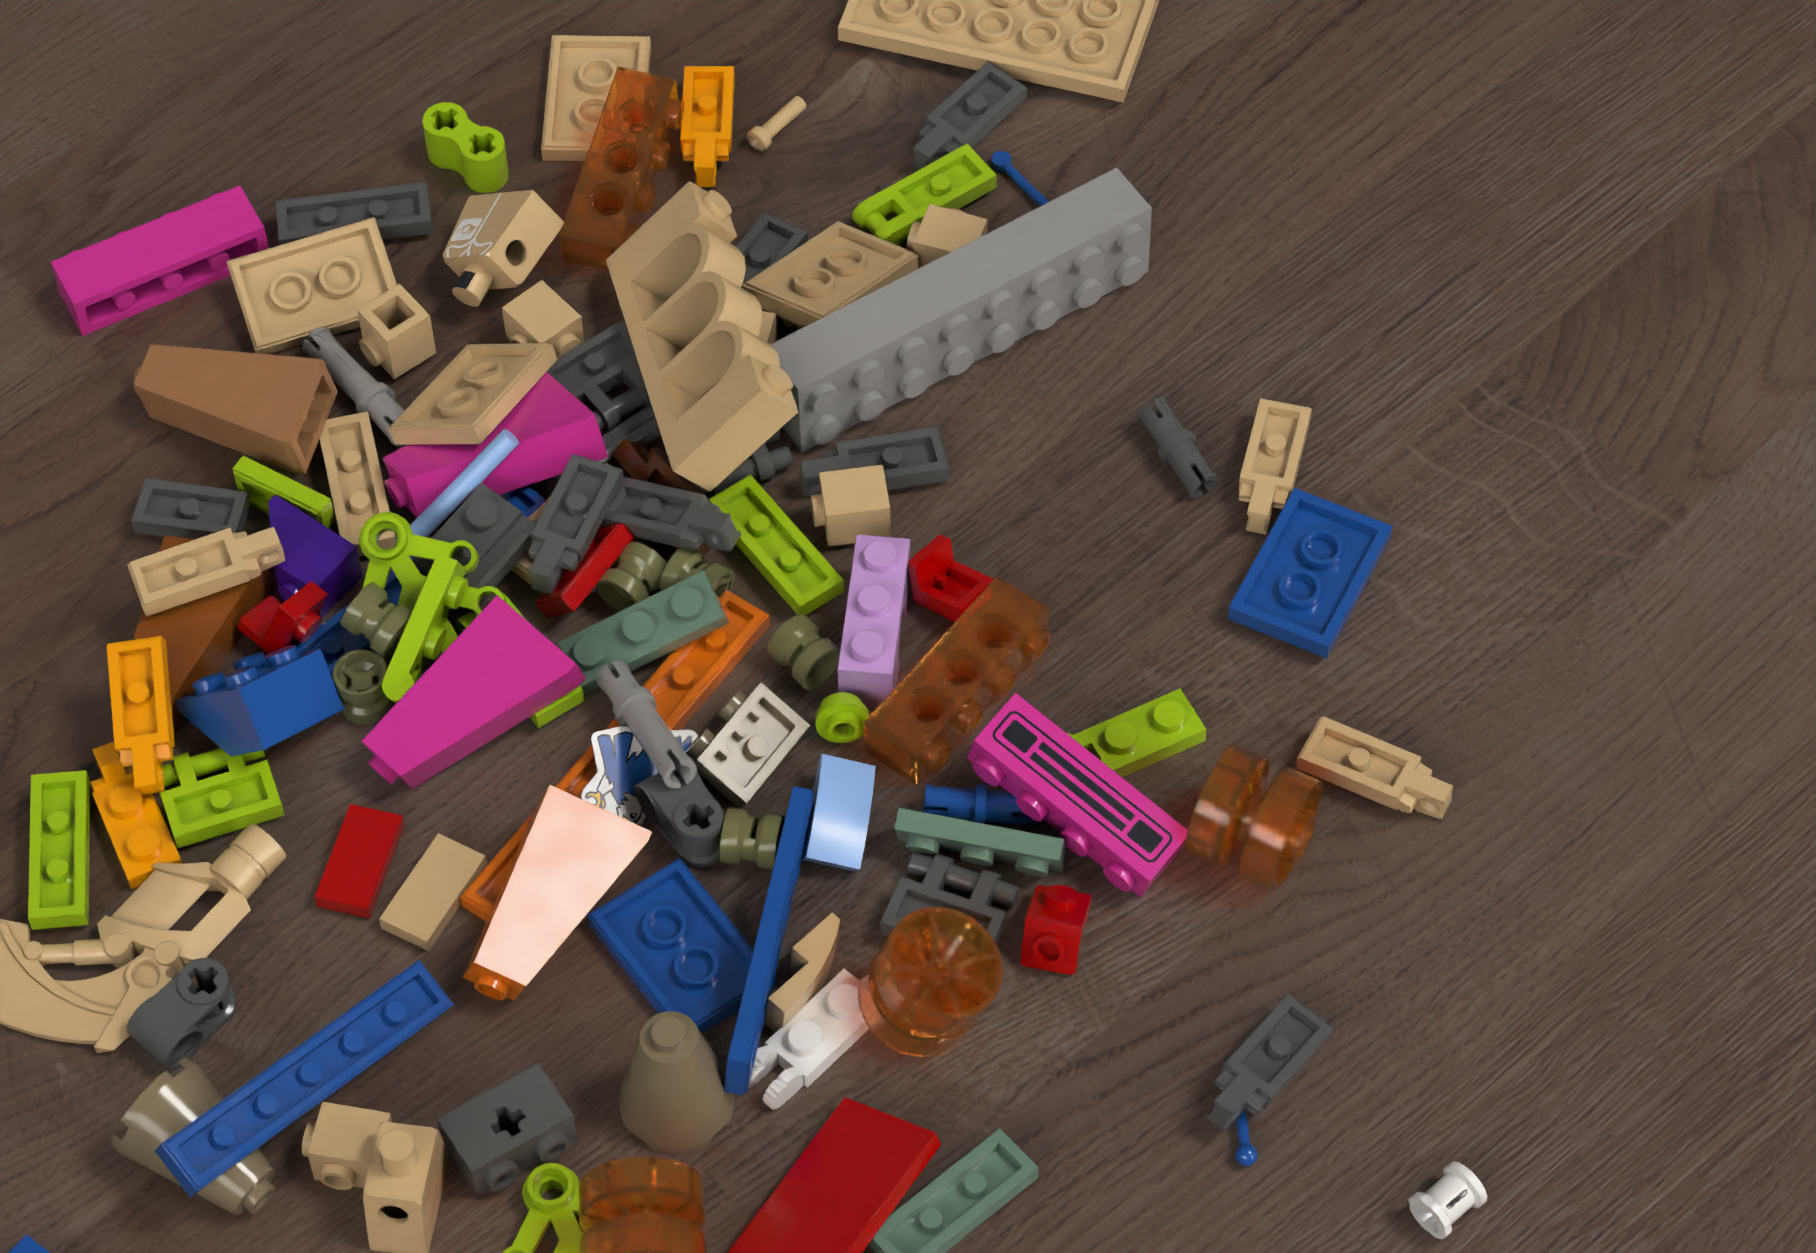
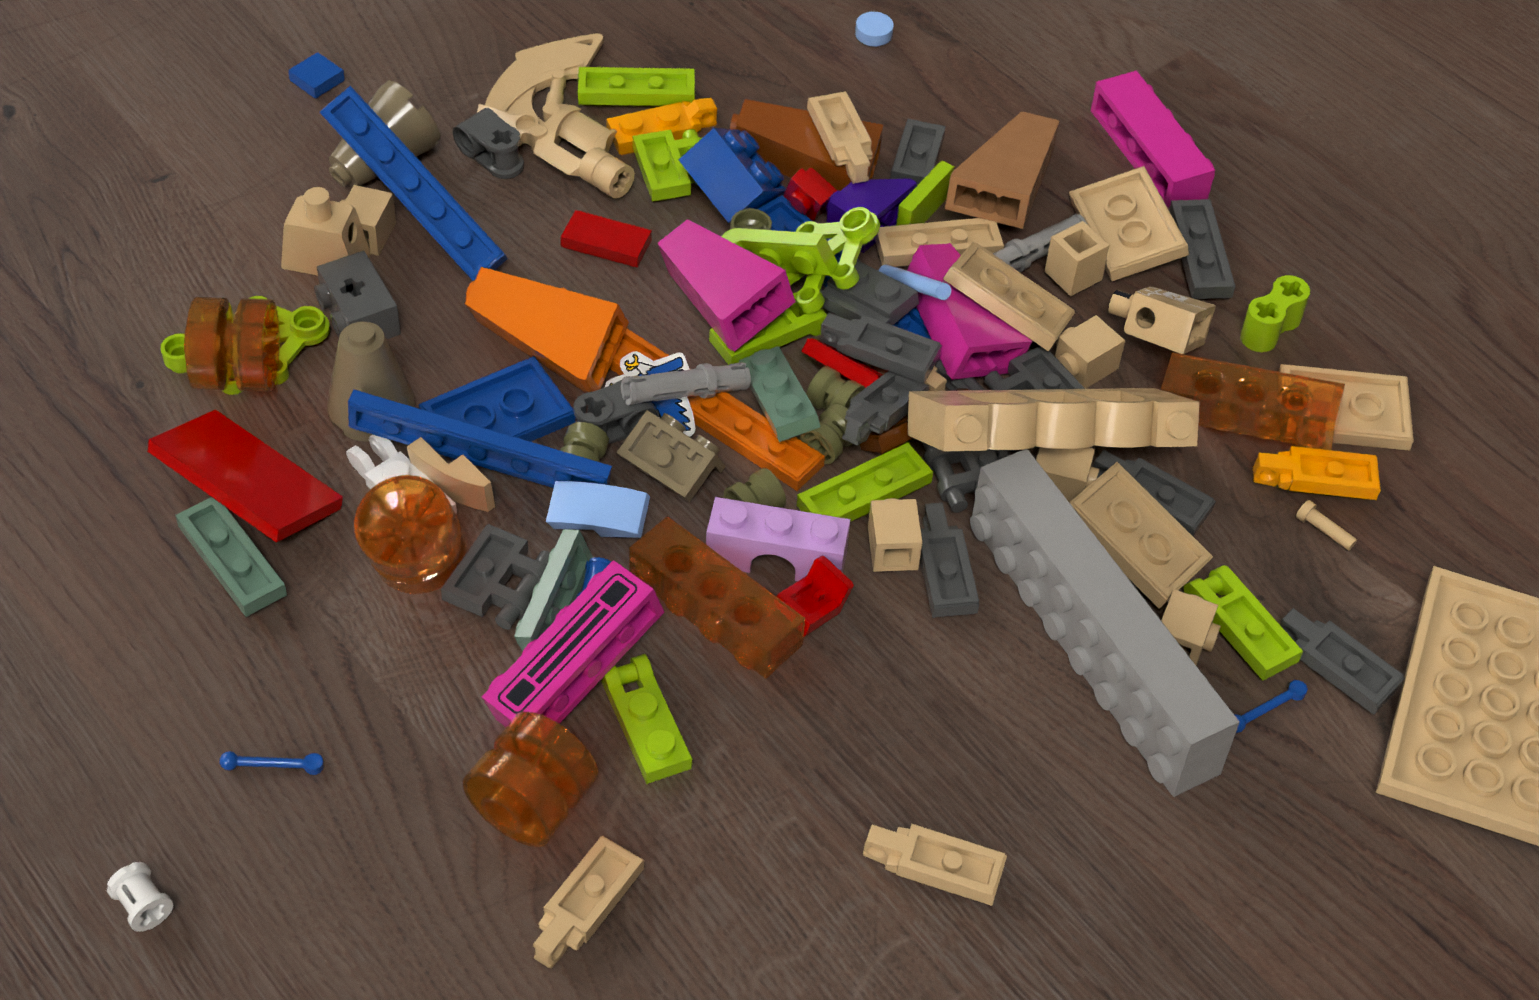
camera: 90 degrees right, 5 degrees down
(141, 709) = (722, 104): light orange hinge -> none
(376, 619) = (792, 217): olive wheel -> none
(432, 892) = (565, 269): tan tile -> none
(841, 718) = (690, 515): lime plate -> none
(1054, 928) = (469, 643): red bracket -> none
(1178, 447) = (956, 786): dark grey pin -> none
(1268, 1061) = (304, 777): dark grey hinge -> none
(1310, 572) = (808, 877): blue plate -> none

